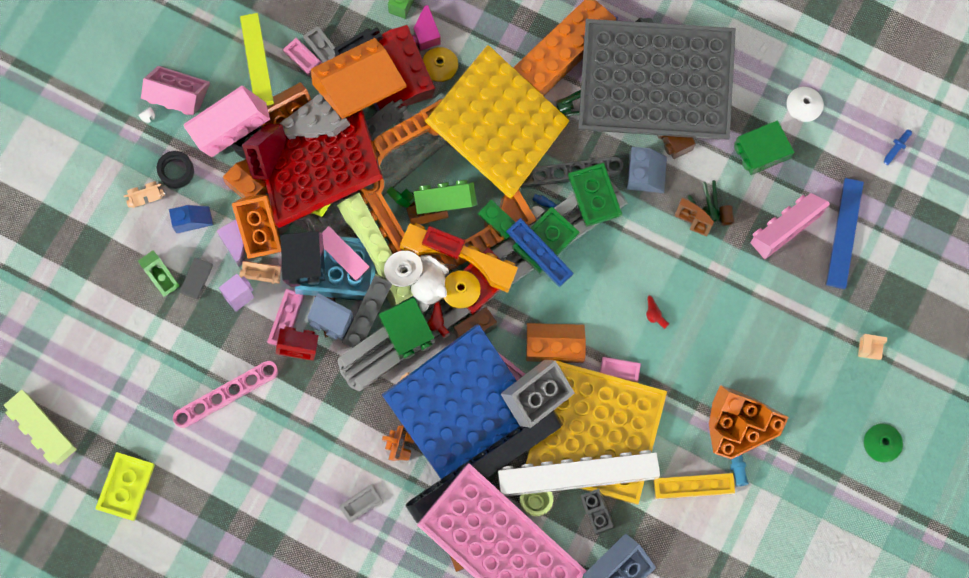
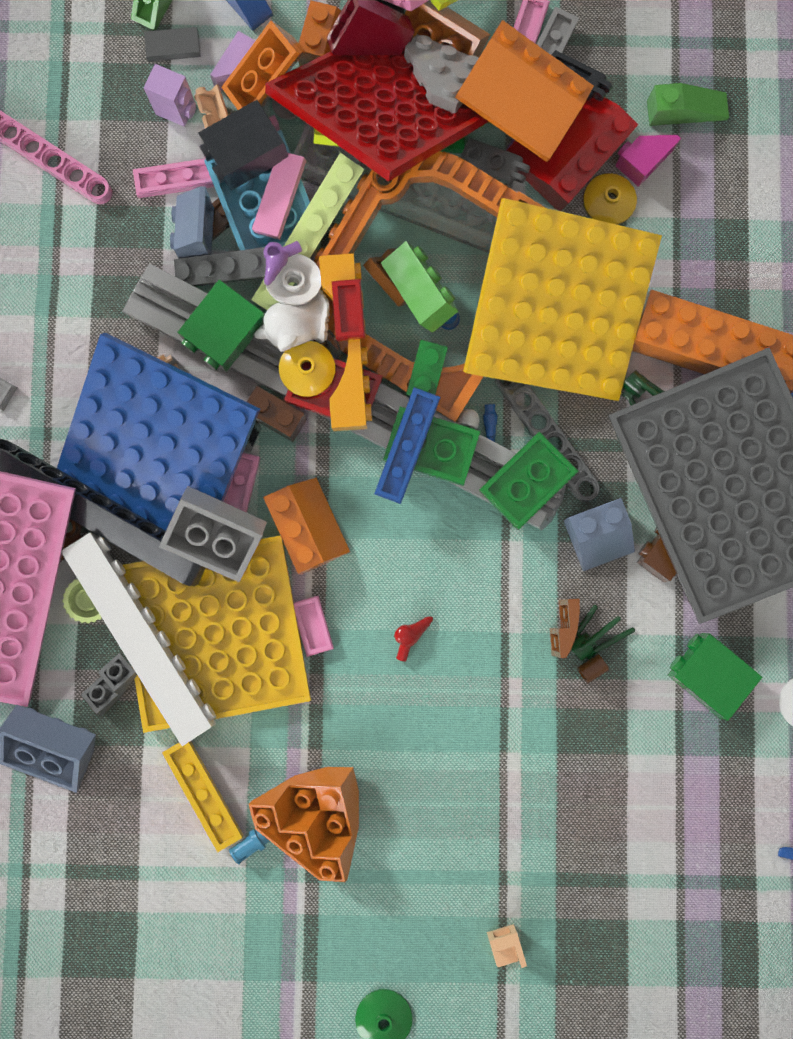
camera: 60 degrees right, 10 degrees up
(297, 344) = (140, 202): red slope -> none
(386, 271) = (277, 258): none -> medium lavender animal
(397, 450) = (68, 398): orange hips -> none
(404, 199) = (394, 231): green slope -> none
(436, 322) = (252, 360): red animal -> none
(789, 224) = (622, 761): bright pink slope -> none
(844, 233) = (649, 839): blue tile -> none

